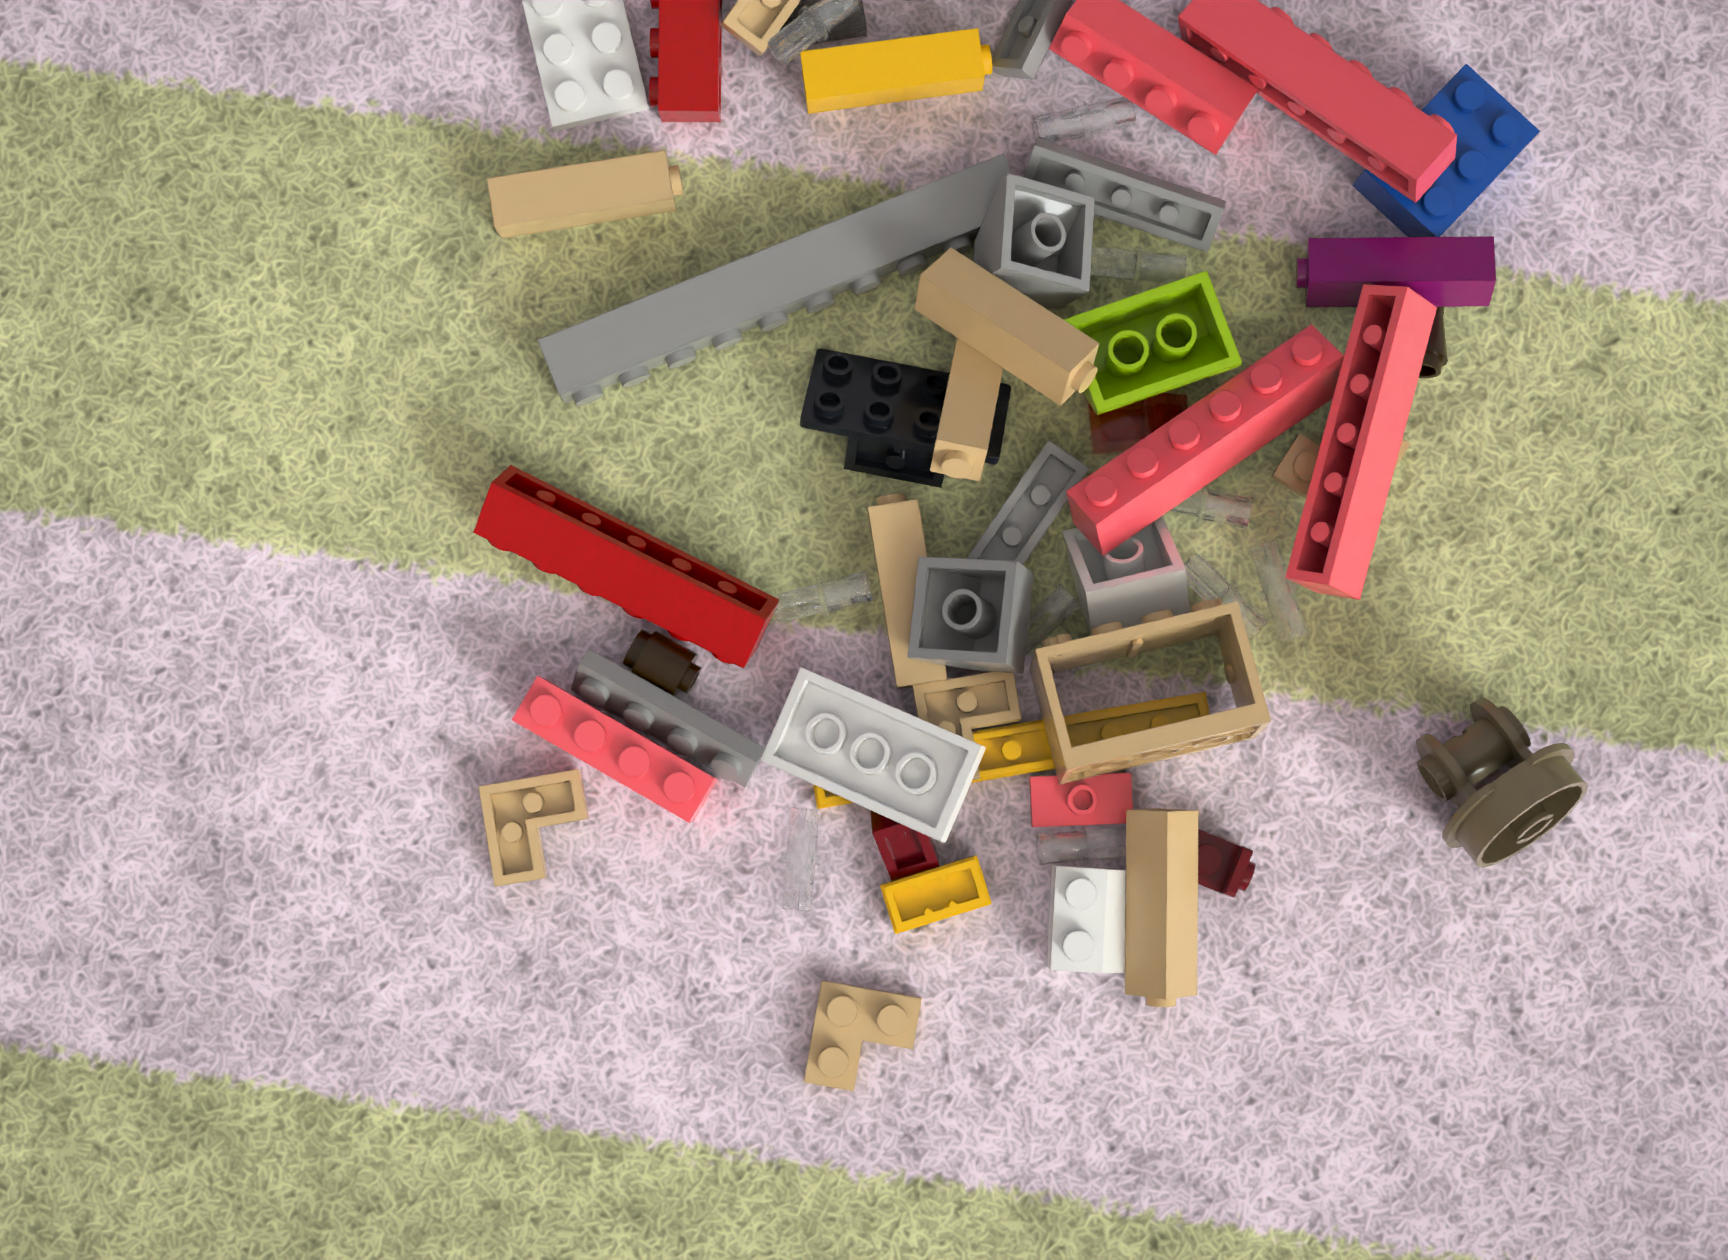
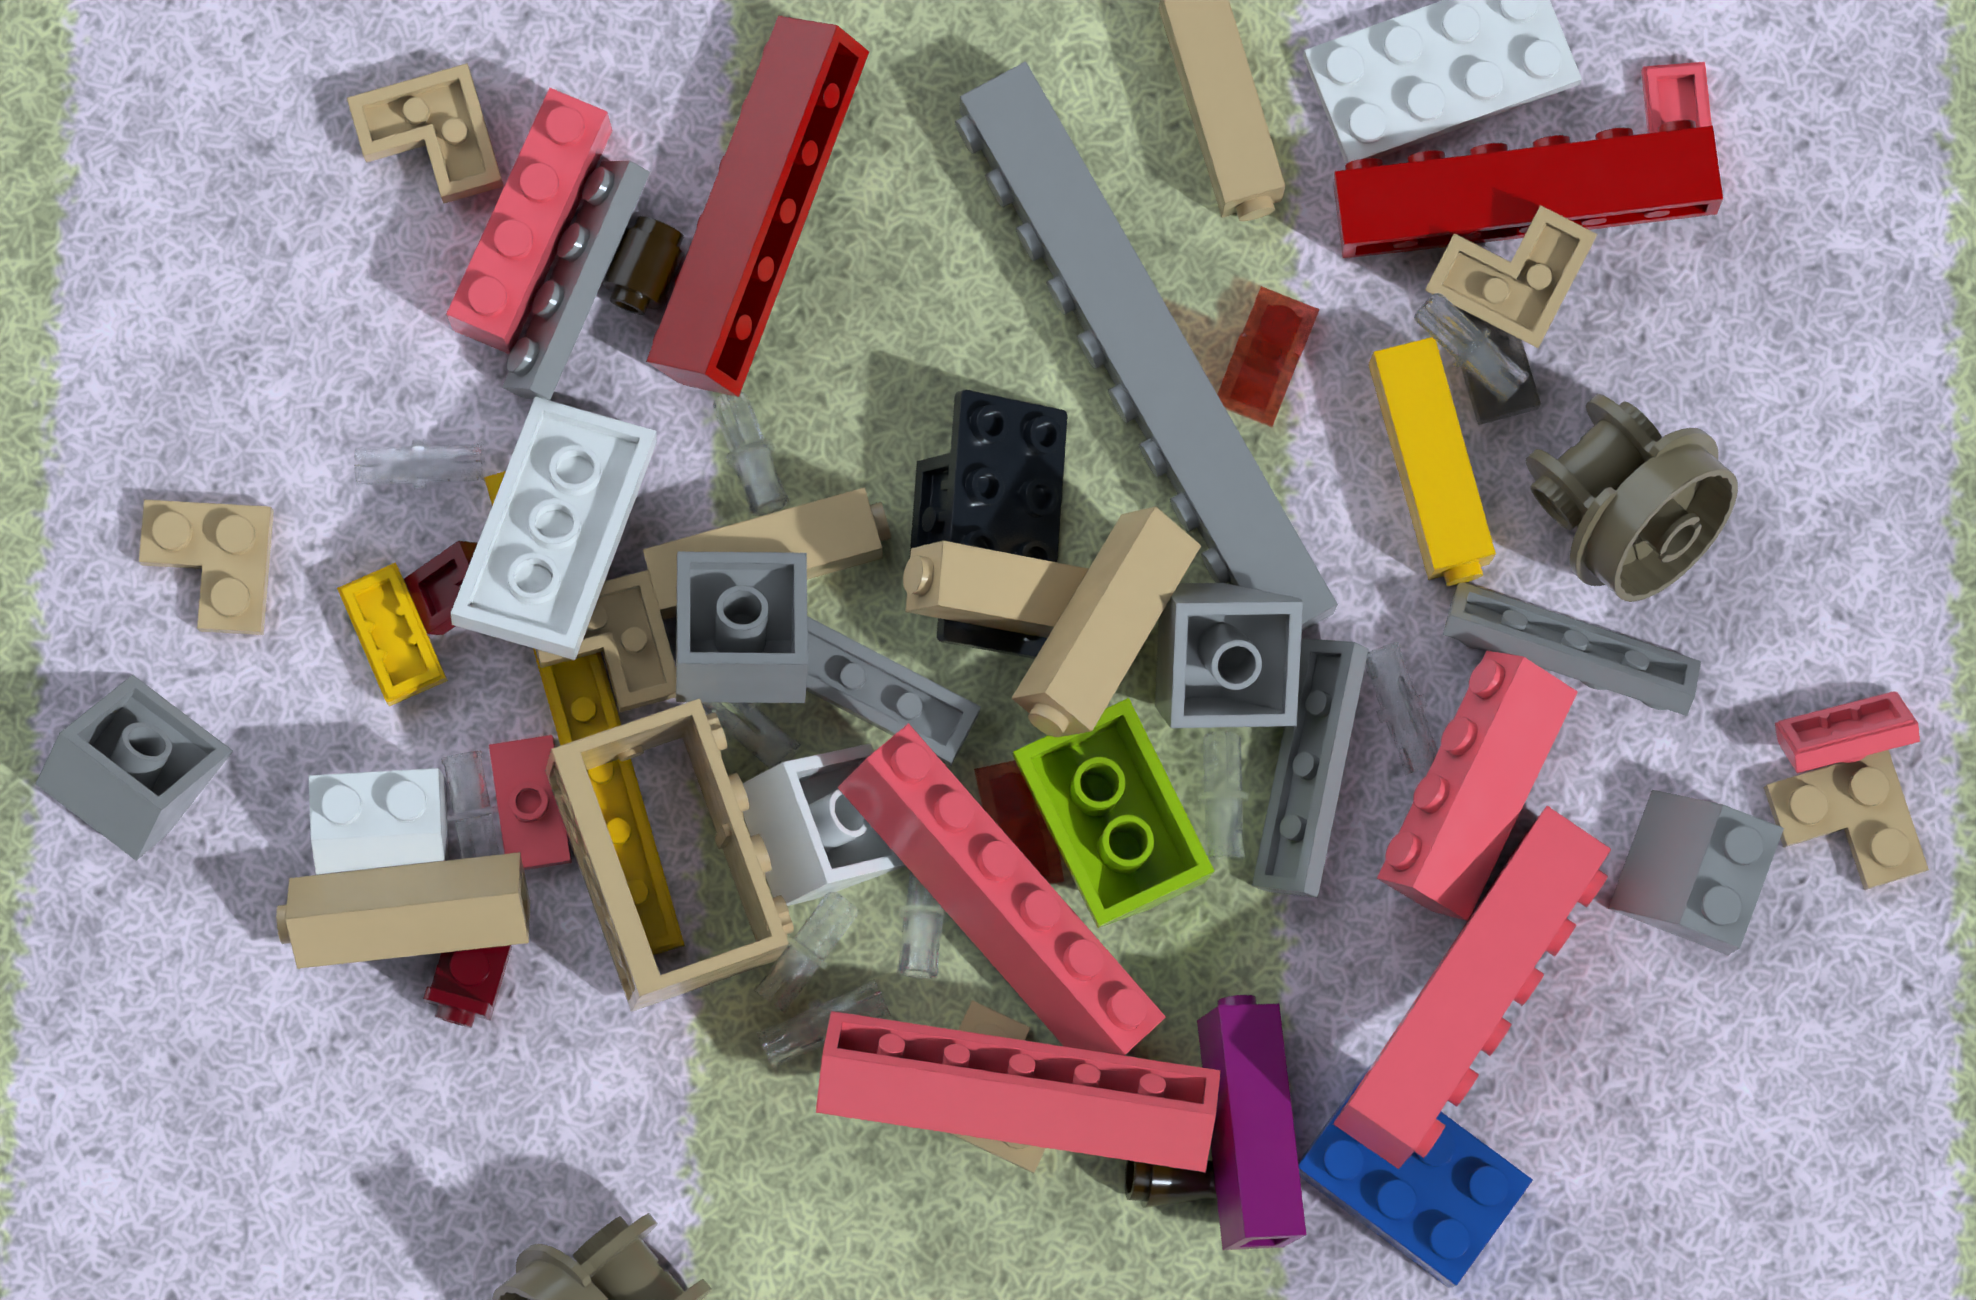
camera: 80 degrees right, 5 degrees down
(793, 187) = (1266, 356): none -> clear red slope
(1018, 1110) = (131, 766): none -> light grey slope

